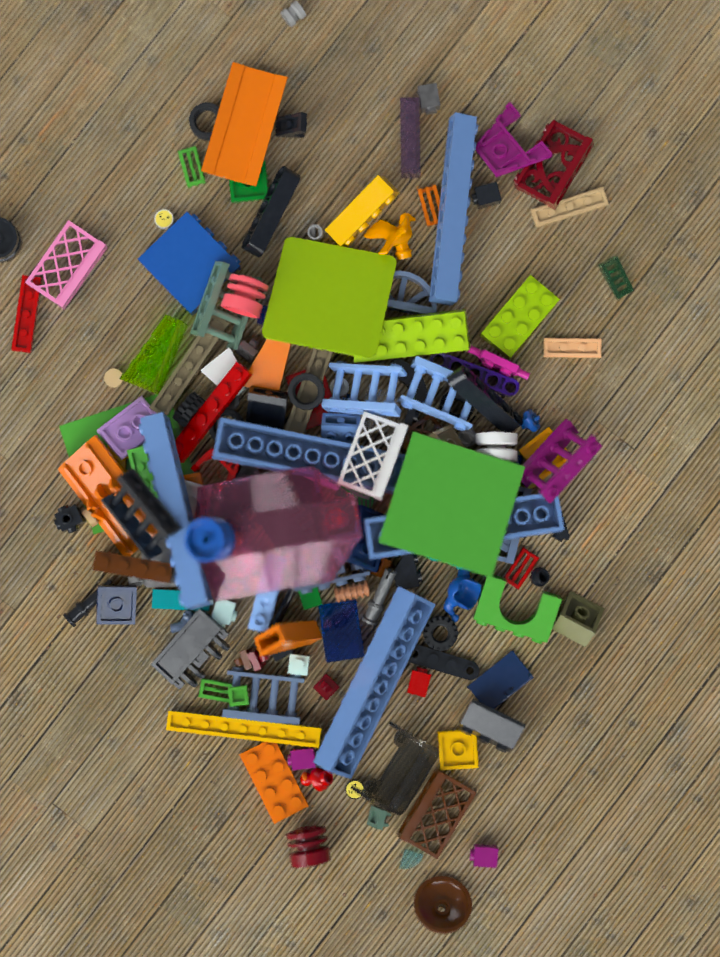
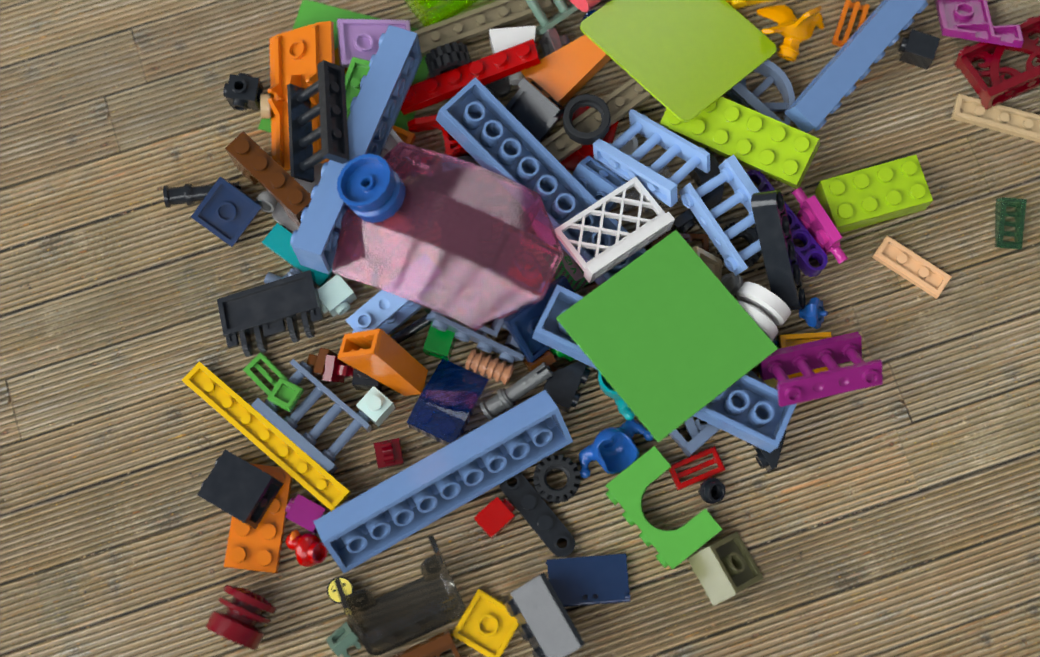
camera: 30 degrees right, 10 degrees down
(251, 772) = (240, 489): none -> black panel

